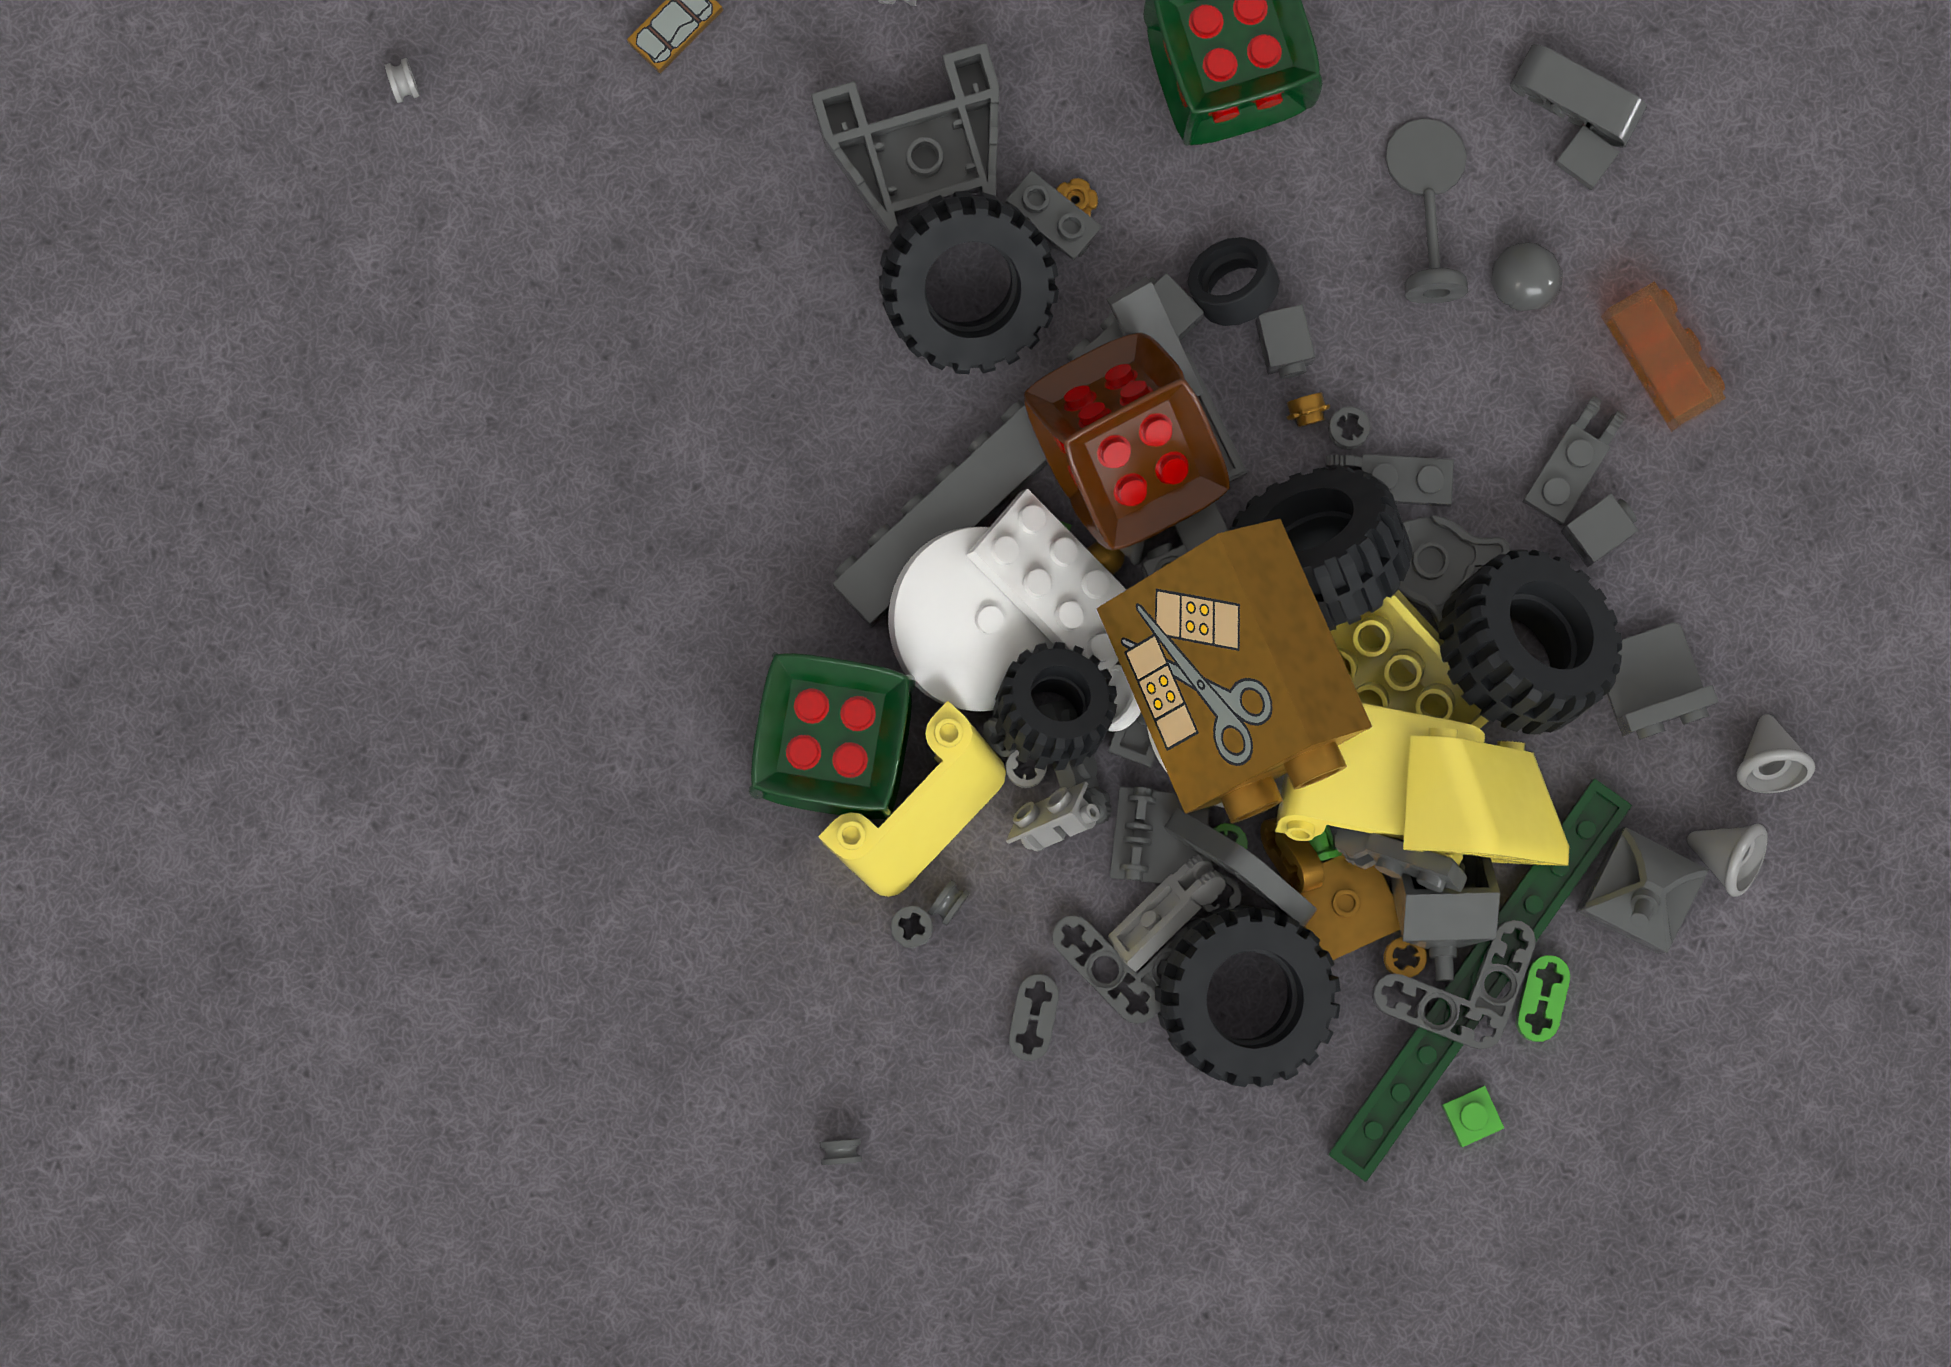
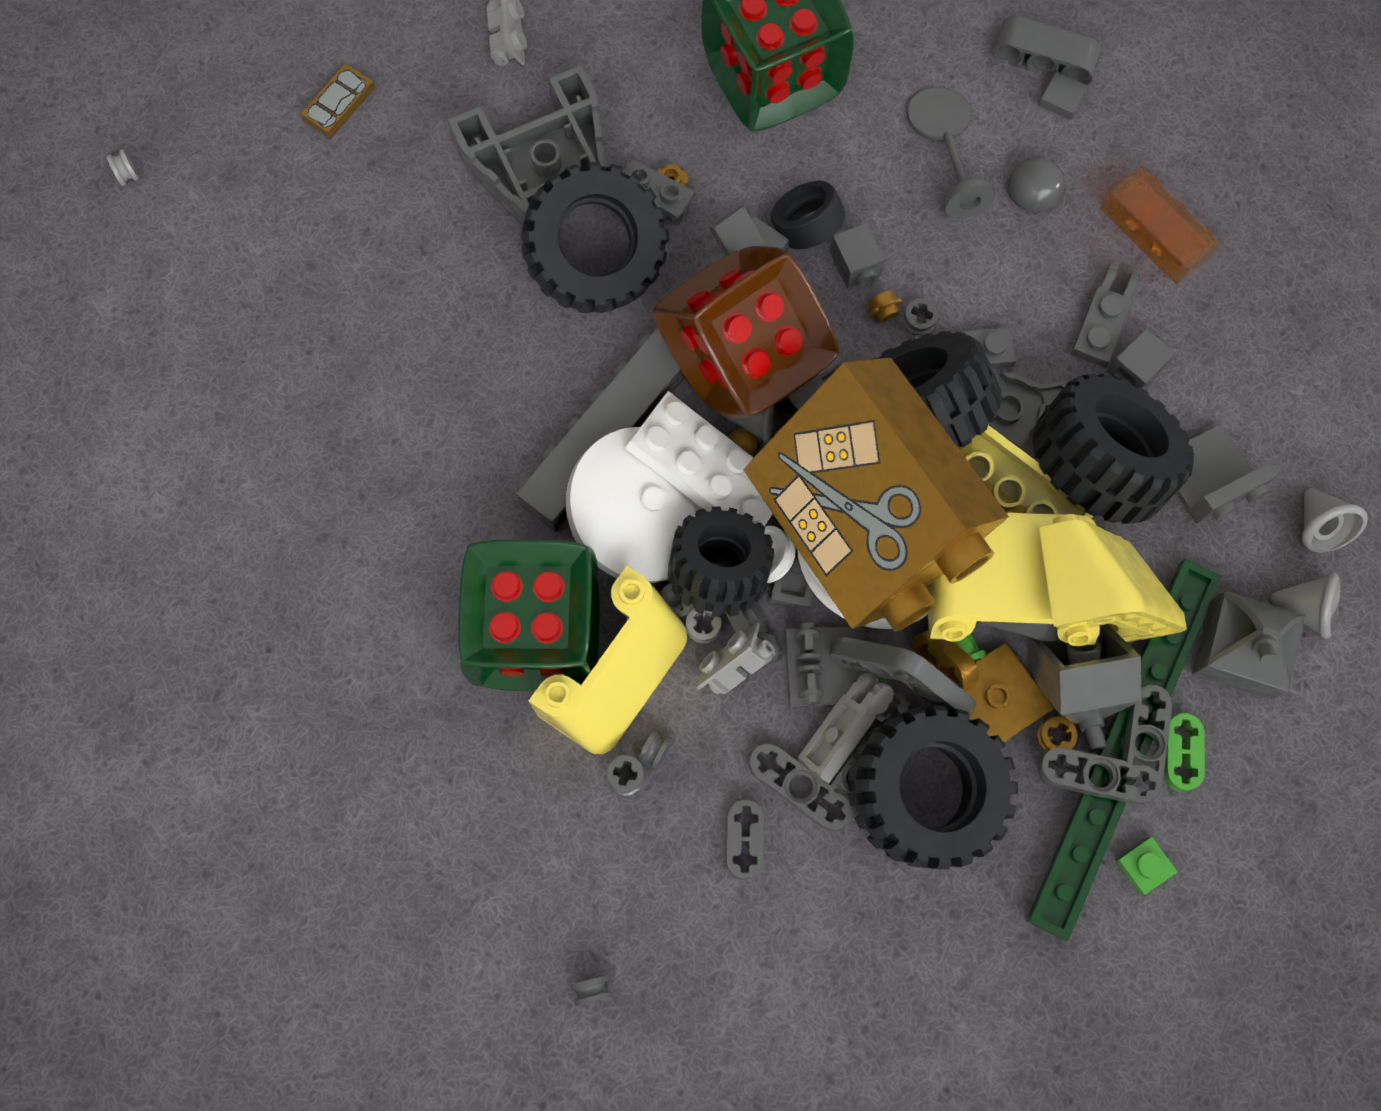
camera: 10 degrees left, 10 degrees down
(1388, 856) = (1044, 640): dark grey hinge -> none

